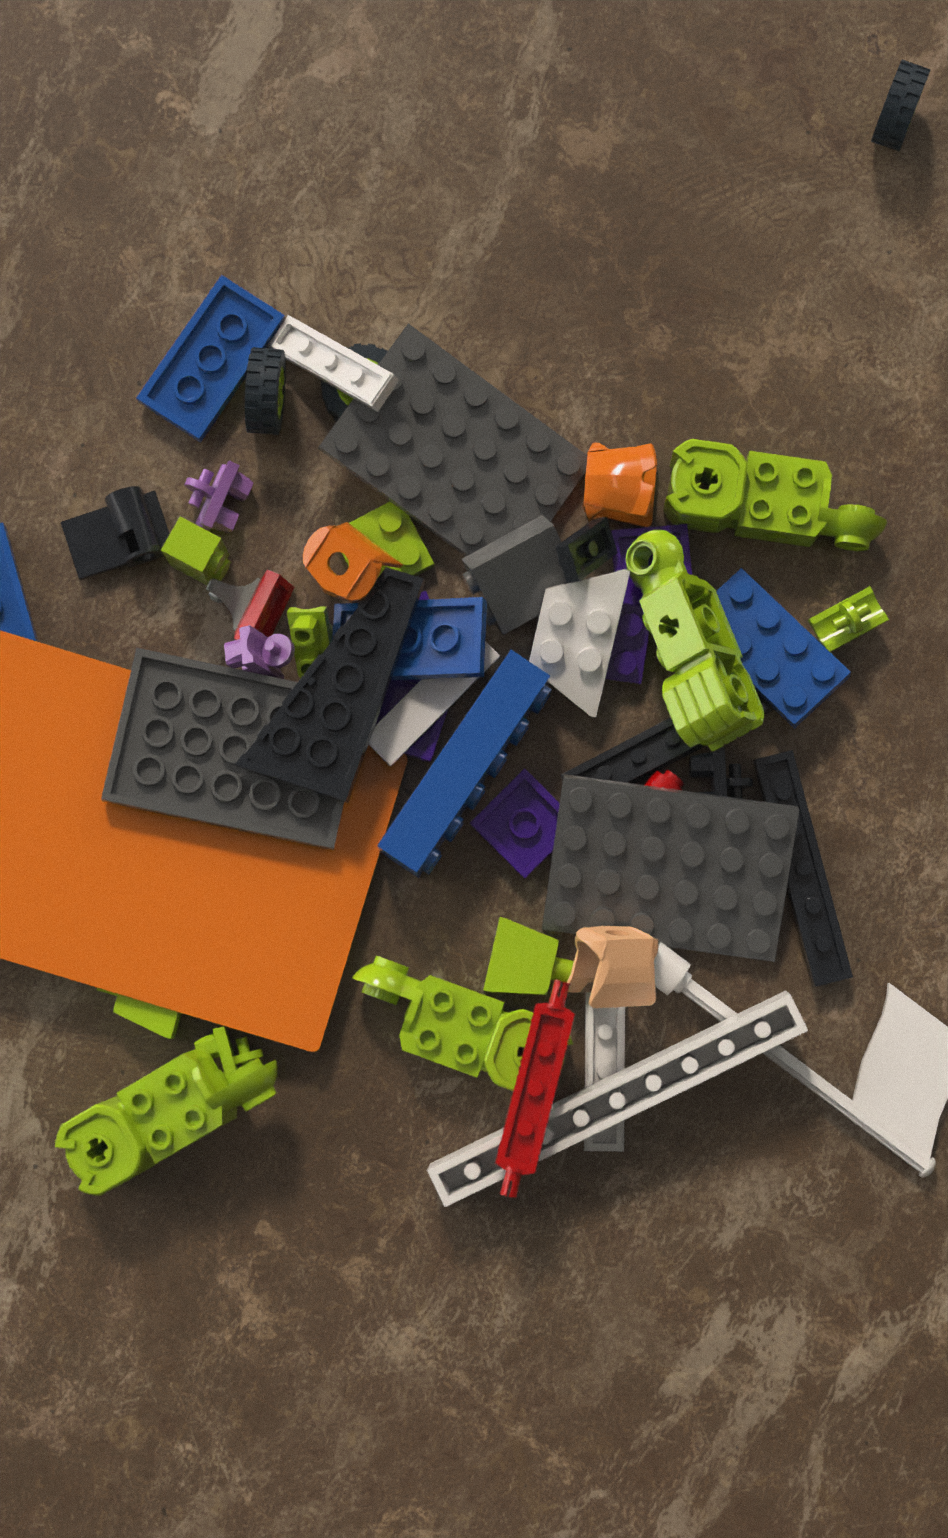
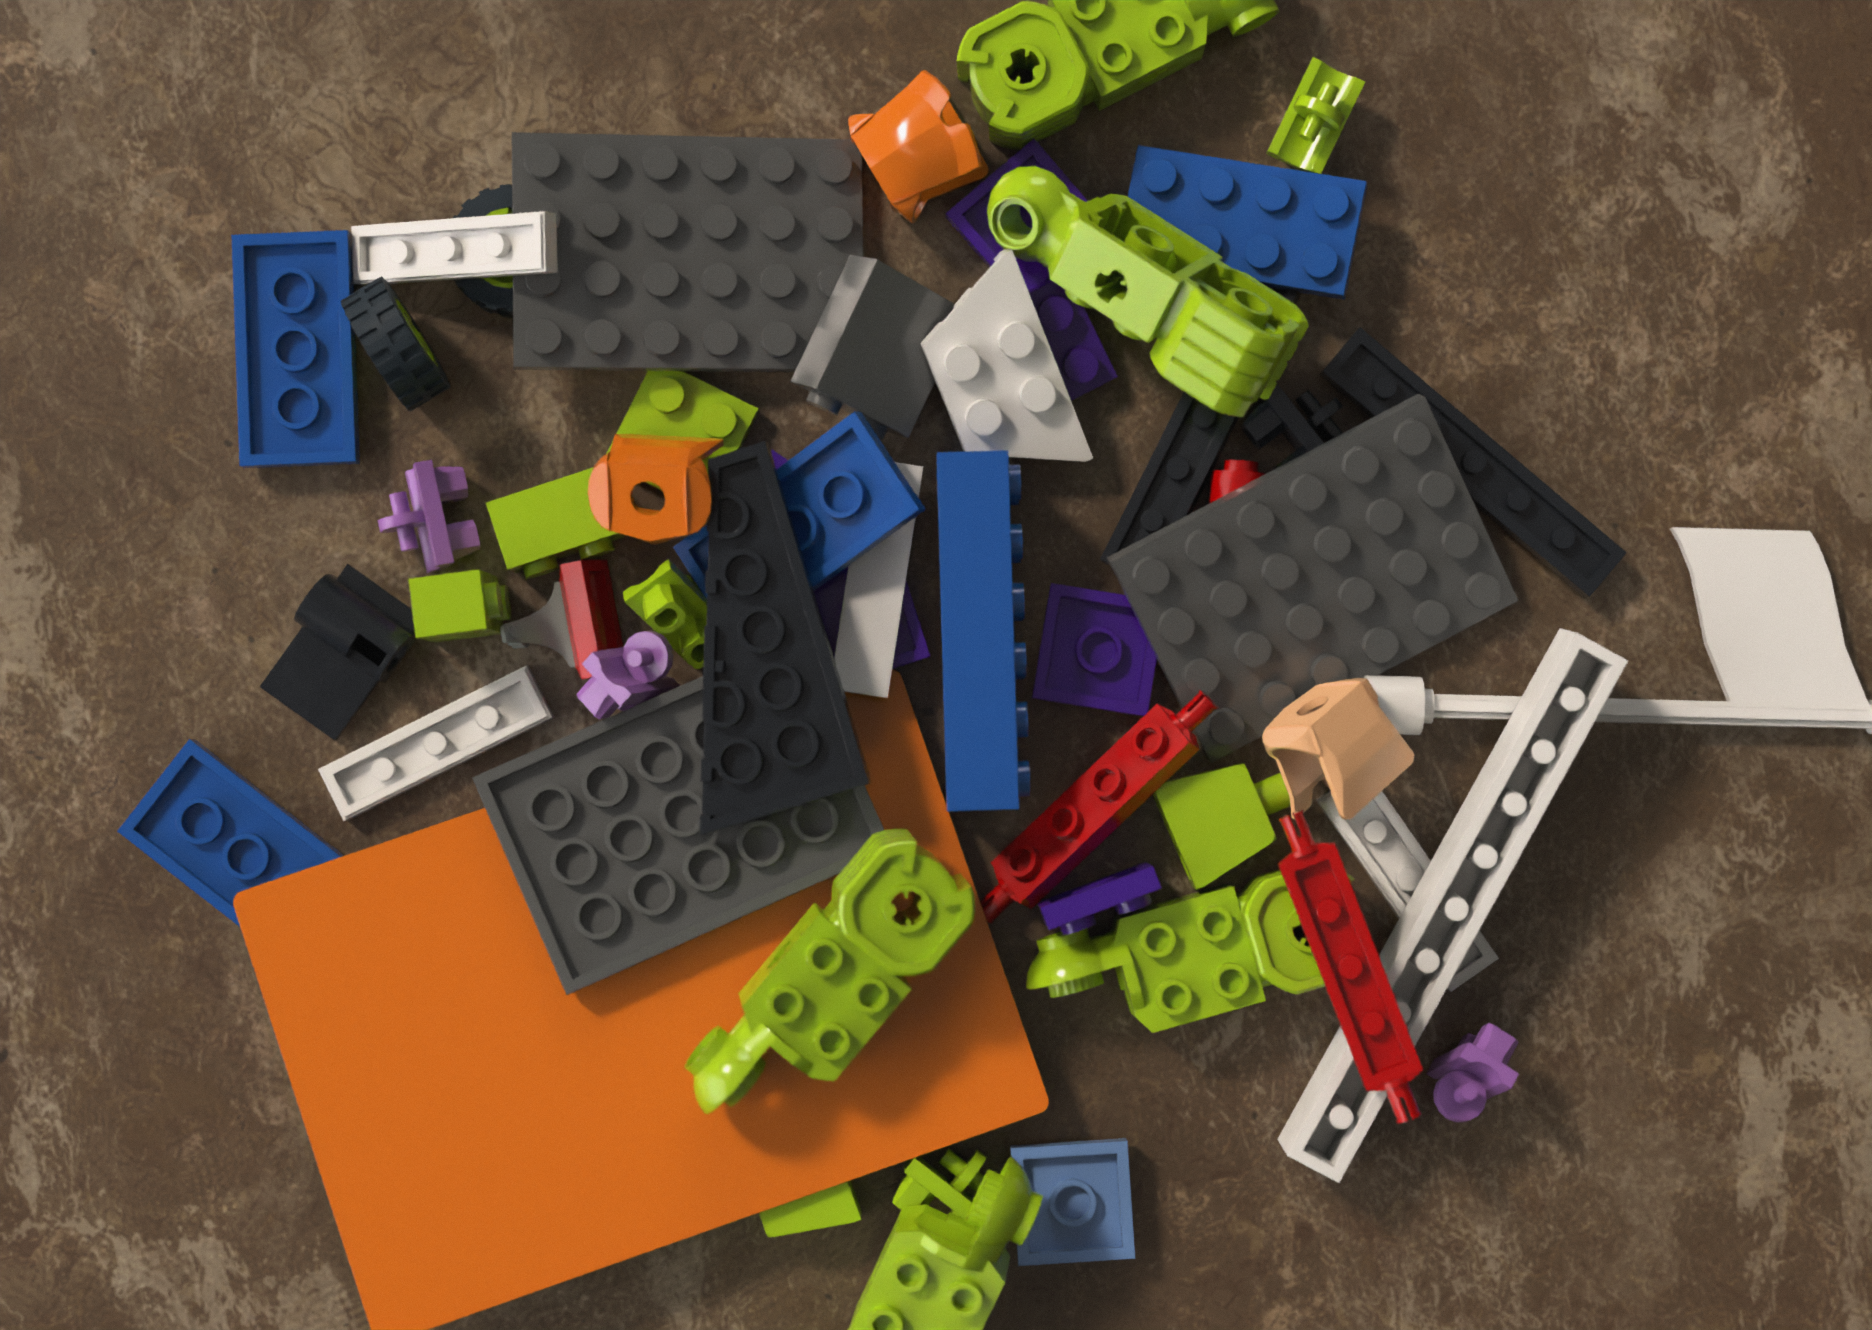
camera: 35 degrees left, 5 degrees up
(131, 619) = (436, 743): none -> white tile
(255, 890) = (839, 970): none -> lime brick
(275, 545) = (548, 525): none -> lime brick
(295, 1118) = (1083, 1202): none -> medium blue plate
(410, 952) = (1122, 890): none -> dark purple plate
(461, 905) = (1095, 805): none -> red plate
(562, 1202) = (1473, 1073): none -> medium lavender hips
(586, 550) = (938, 261): black plate -> none

